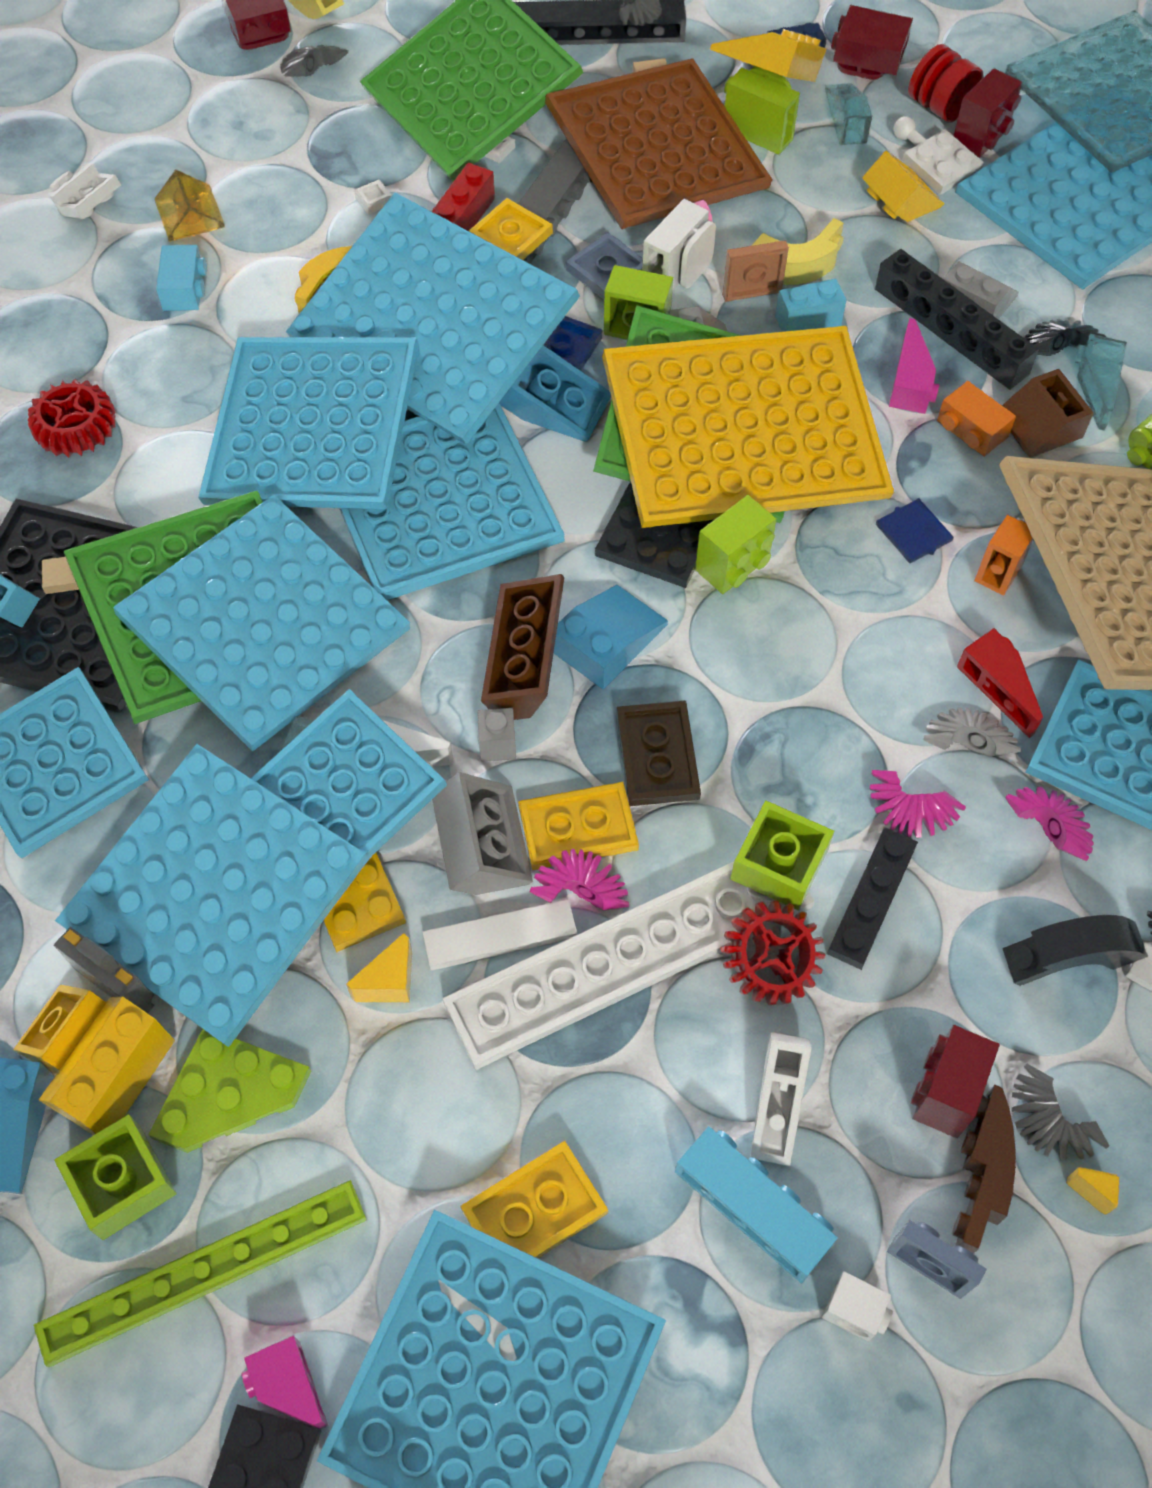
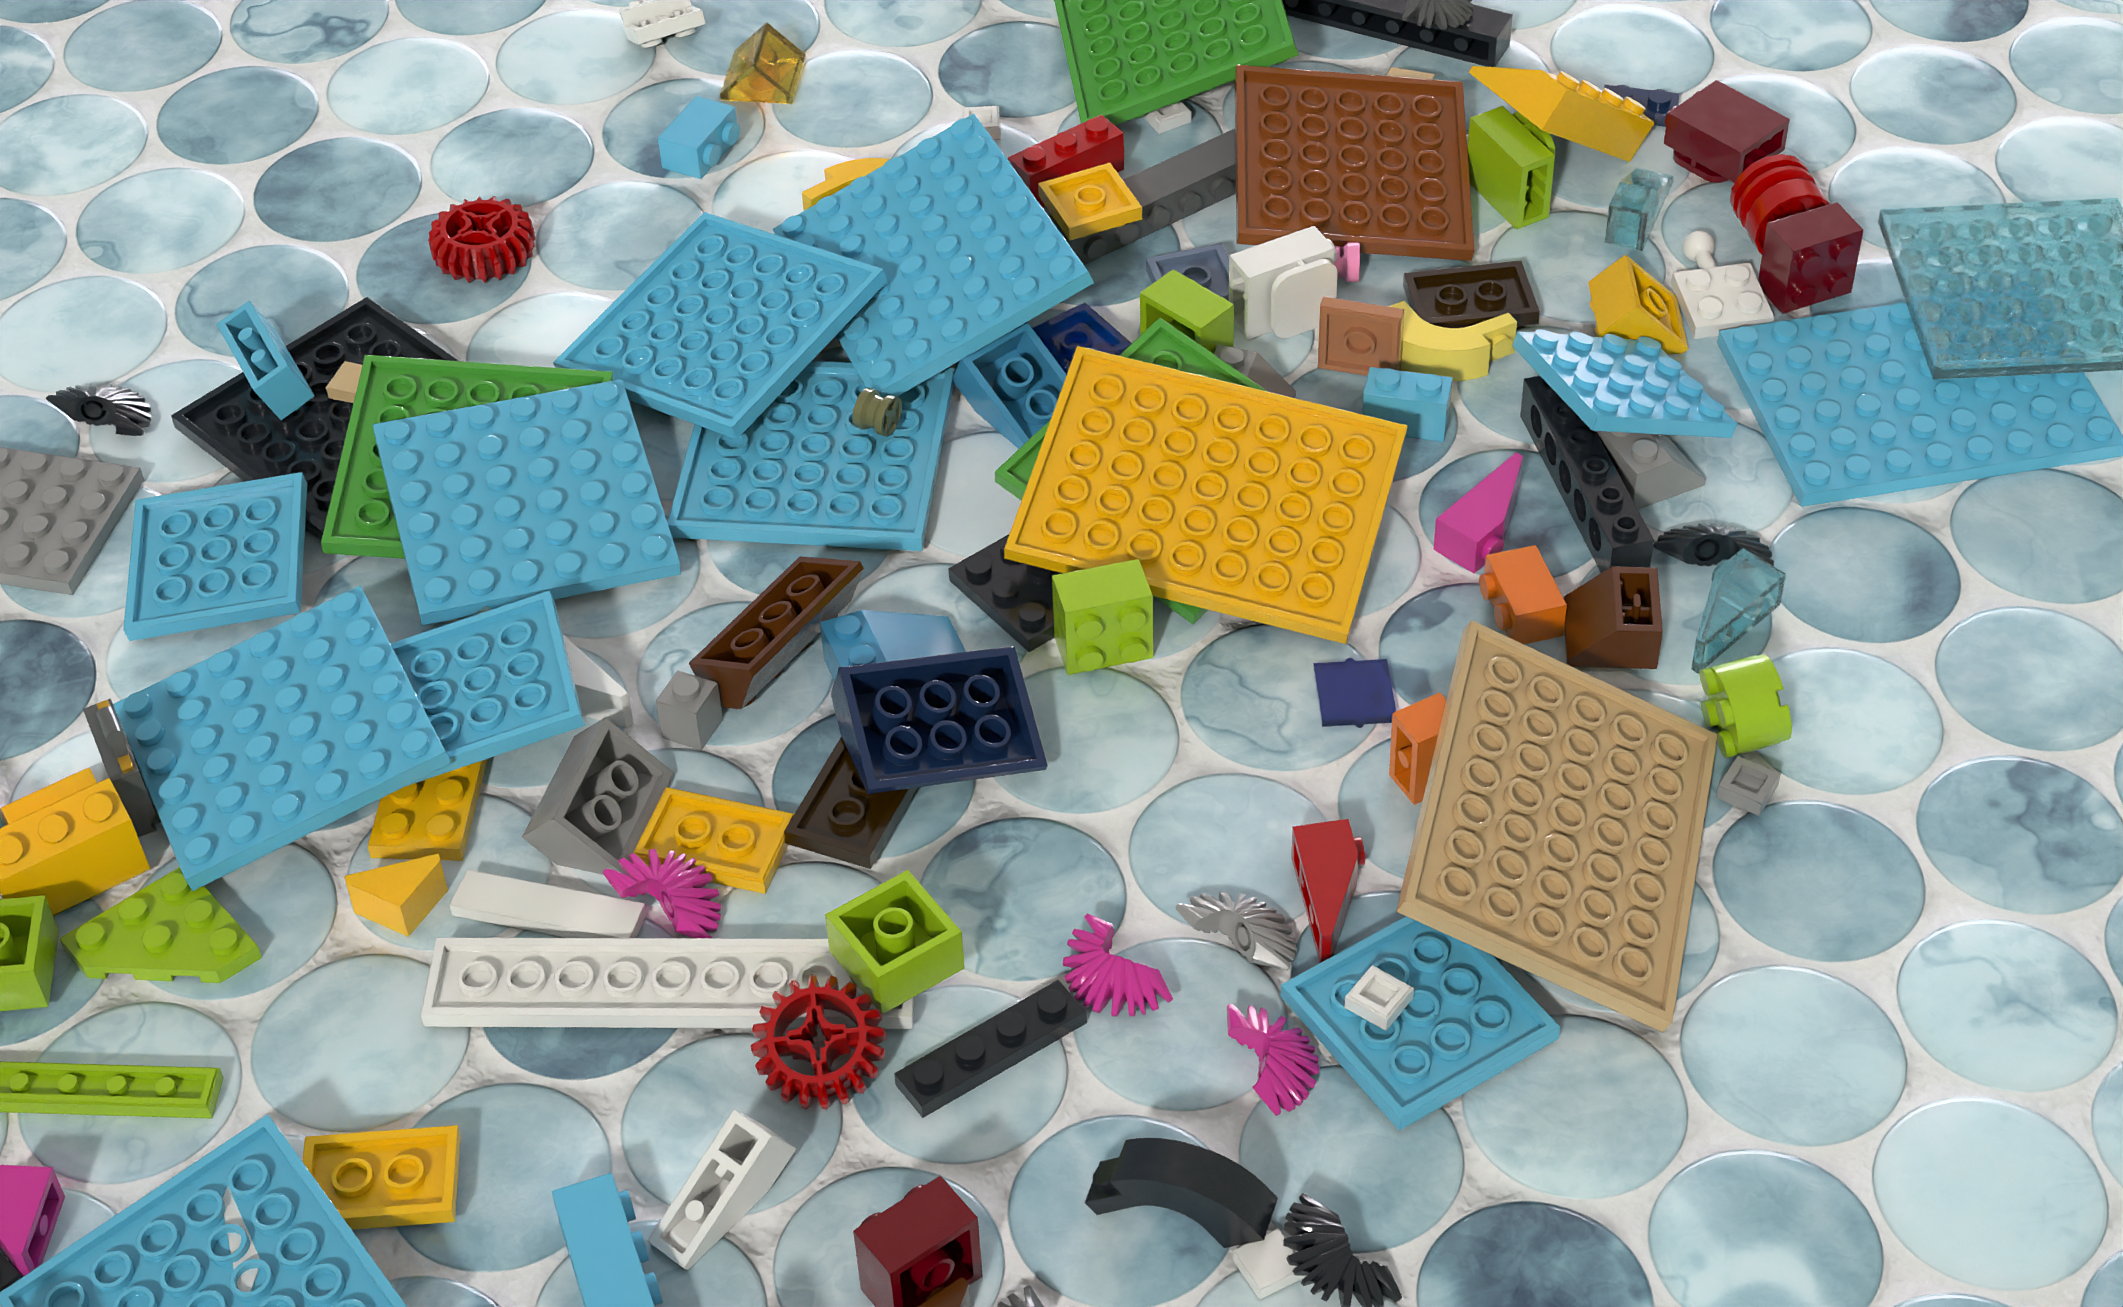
camera: 30 degrees right, 15 degrees down
(473, 449) = (877, 412): none -> olive wheel
(682, 673) = (937, 719): none -> dark blue slope
(793, 213) = (1472, 294): none -> dark brown plate
(943, 244) = (1623, 384): none -> medium azure plate
(1098, 748) = (1379, 997): none -> white tile

